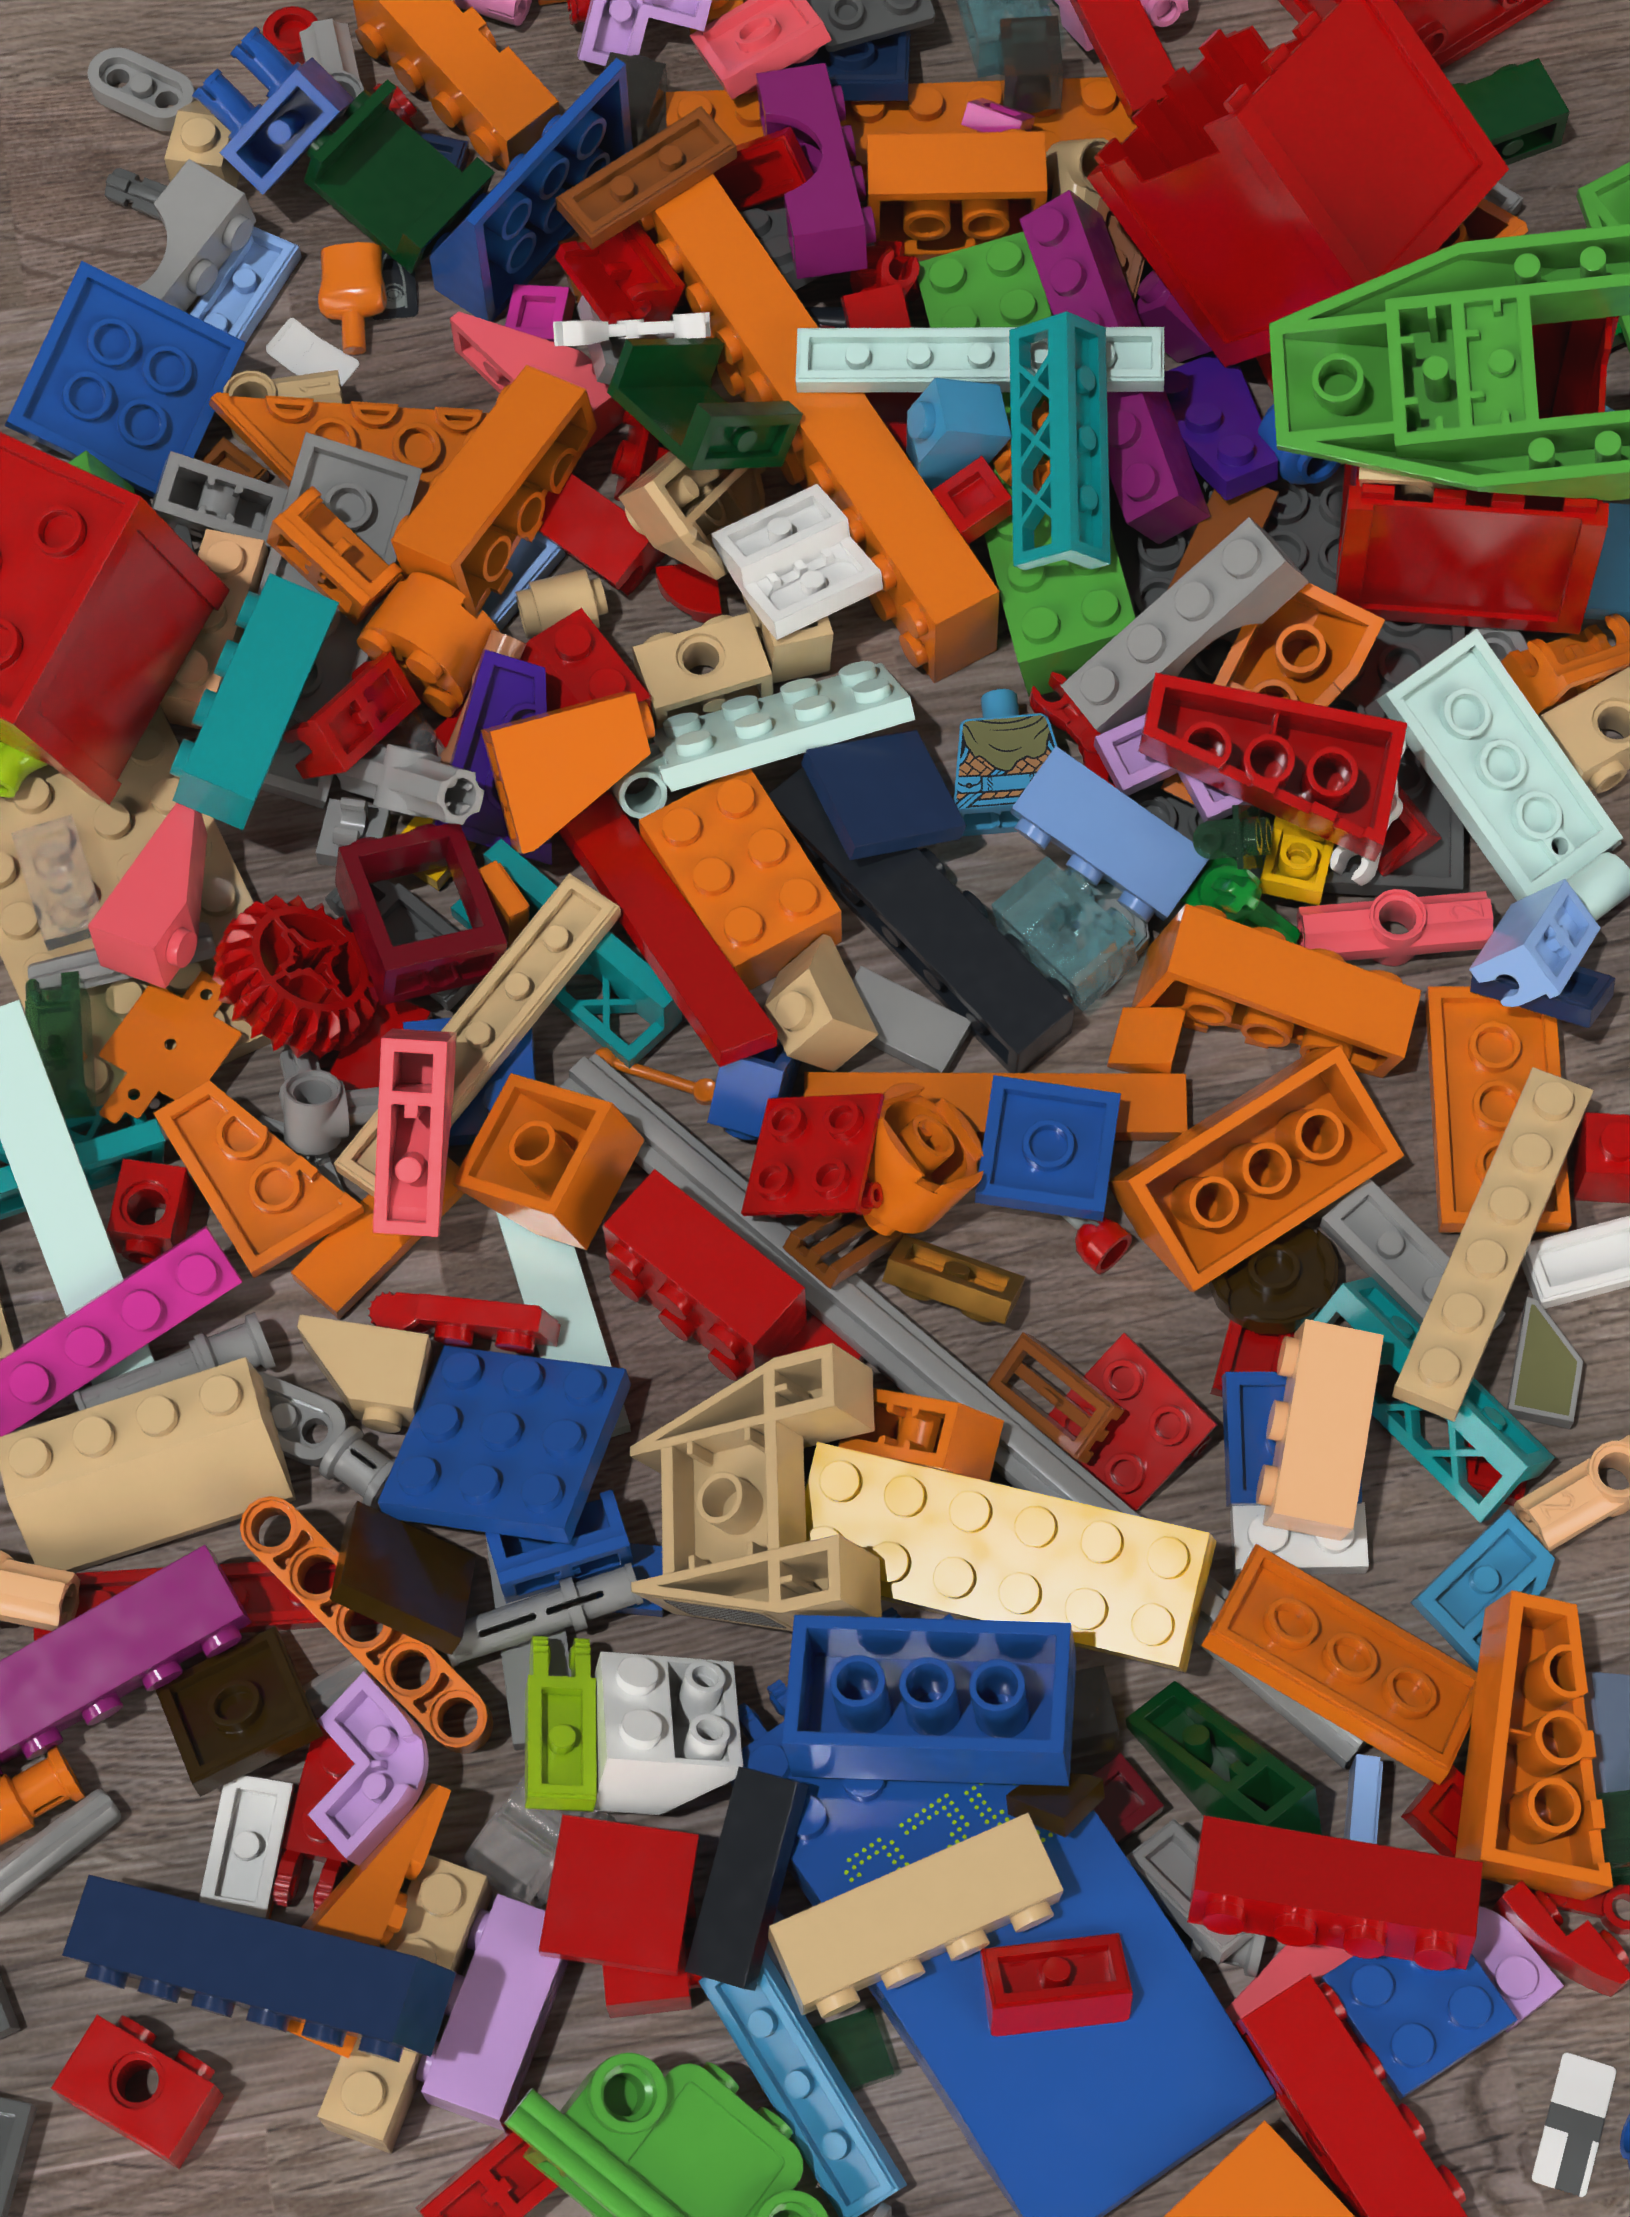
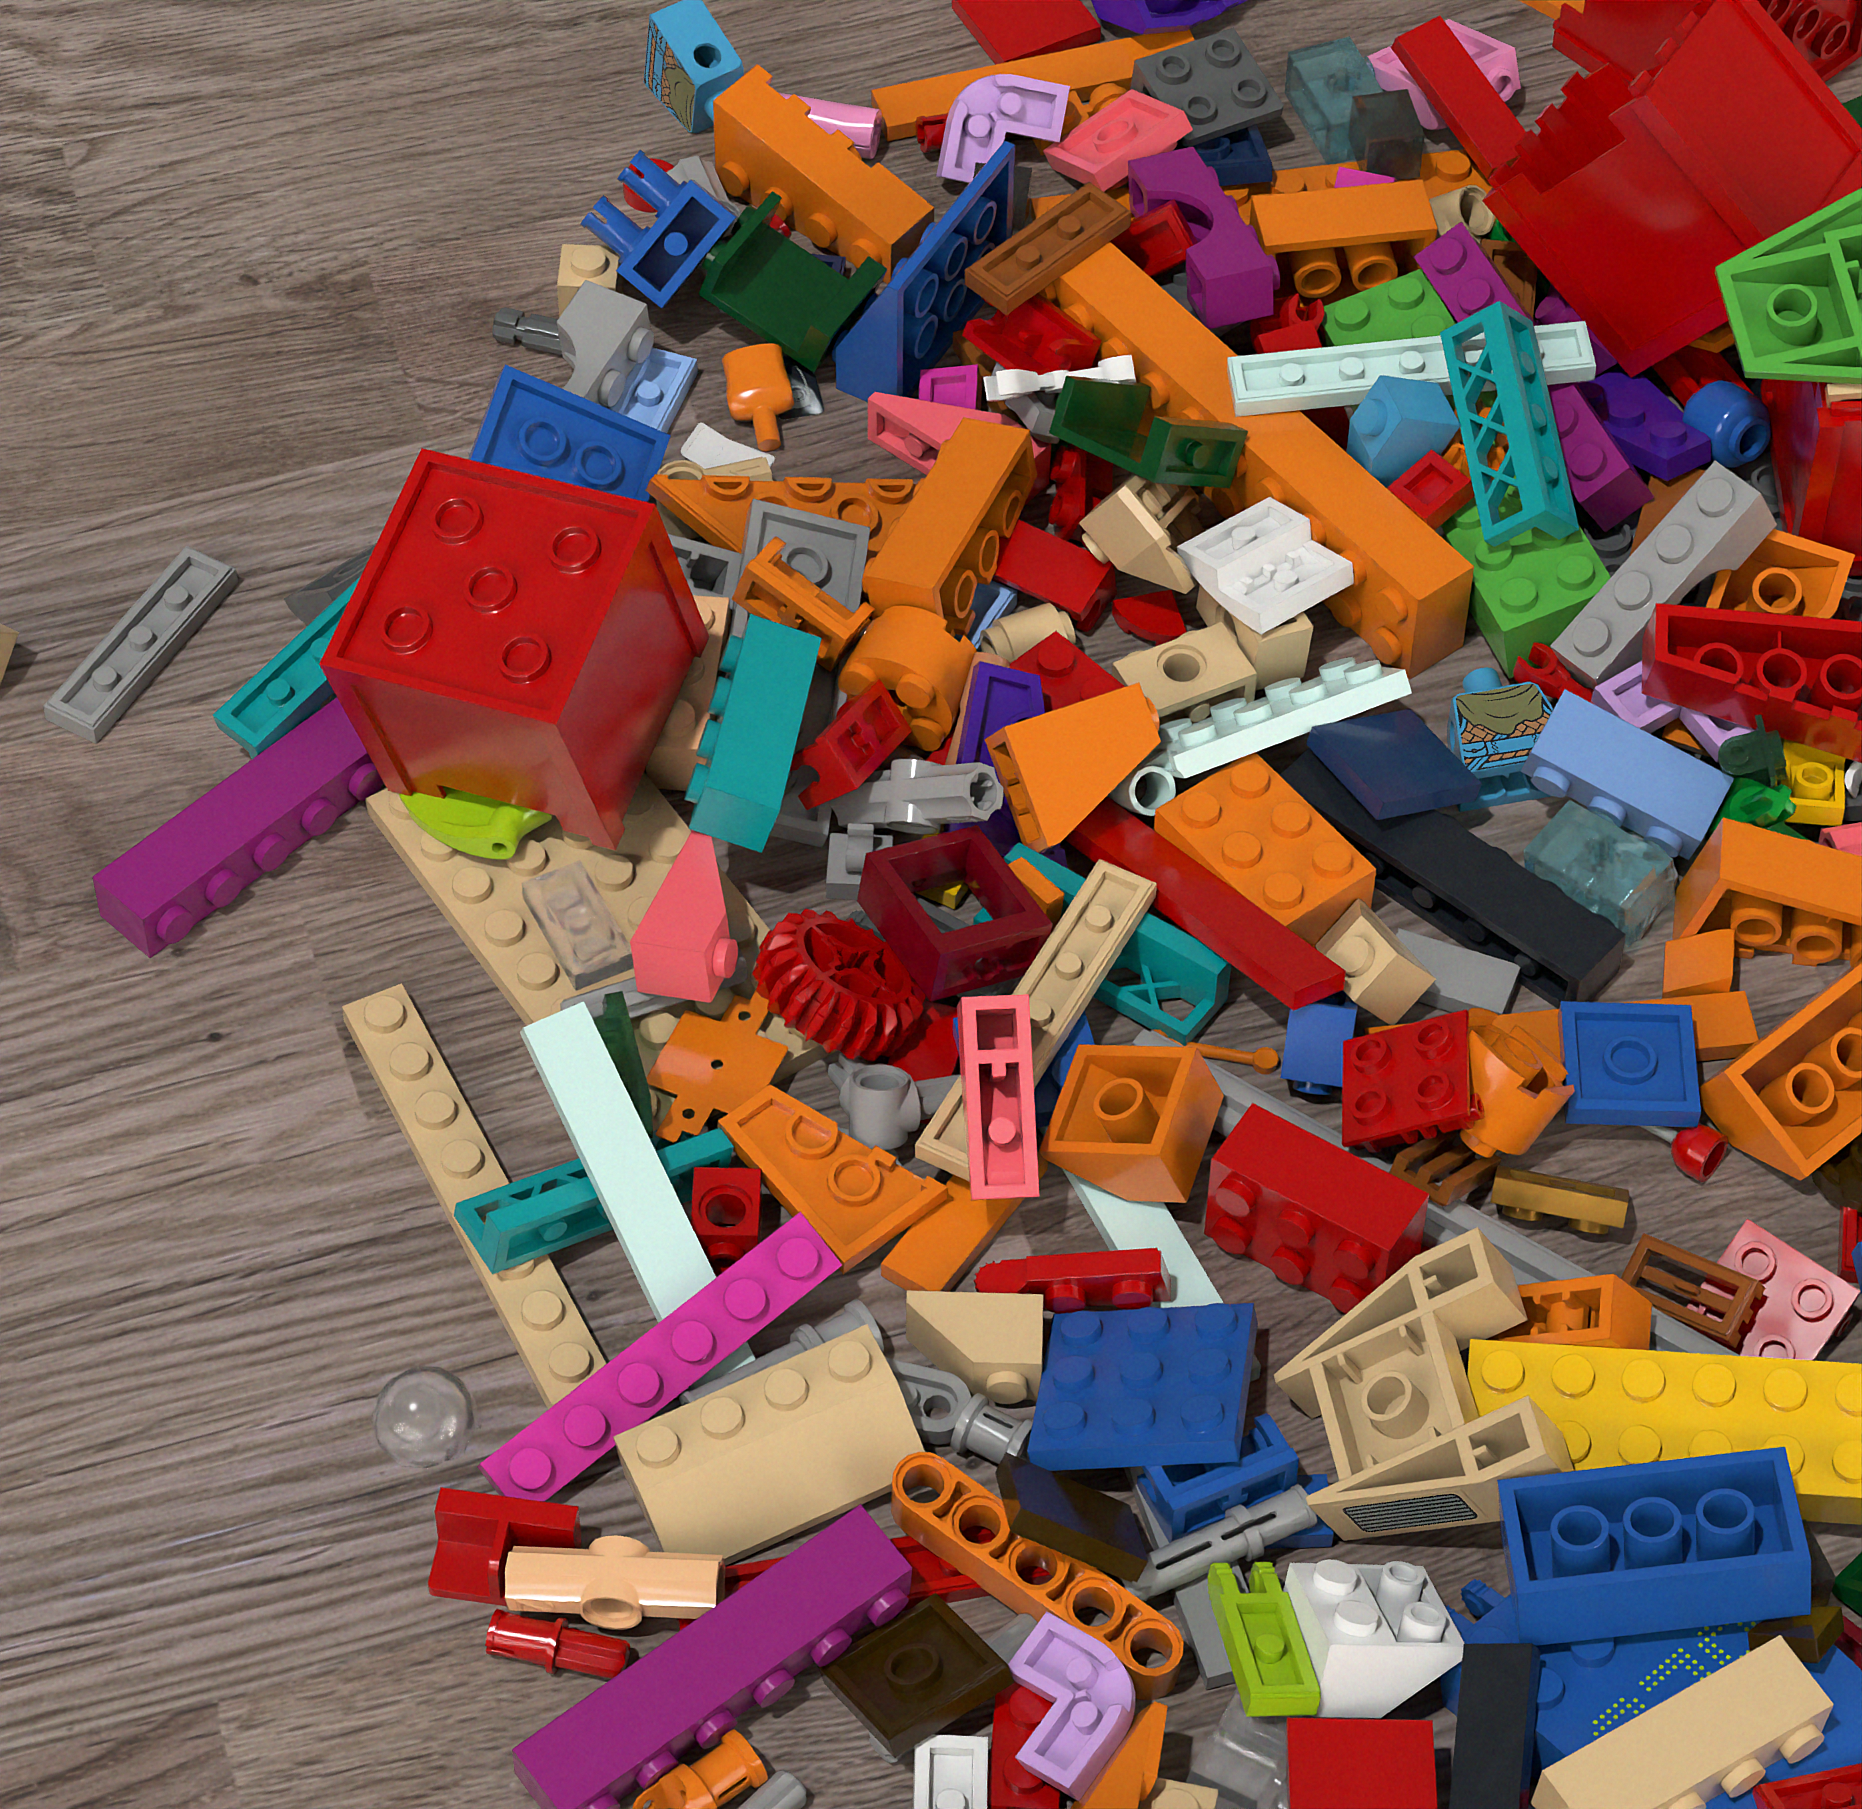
camera: 10 degrees left, 15 degrees down
(147, 88) = (512, 239): light grey plate -> none

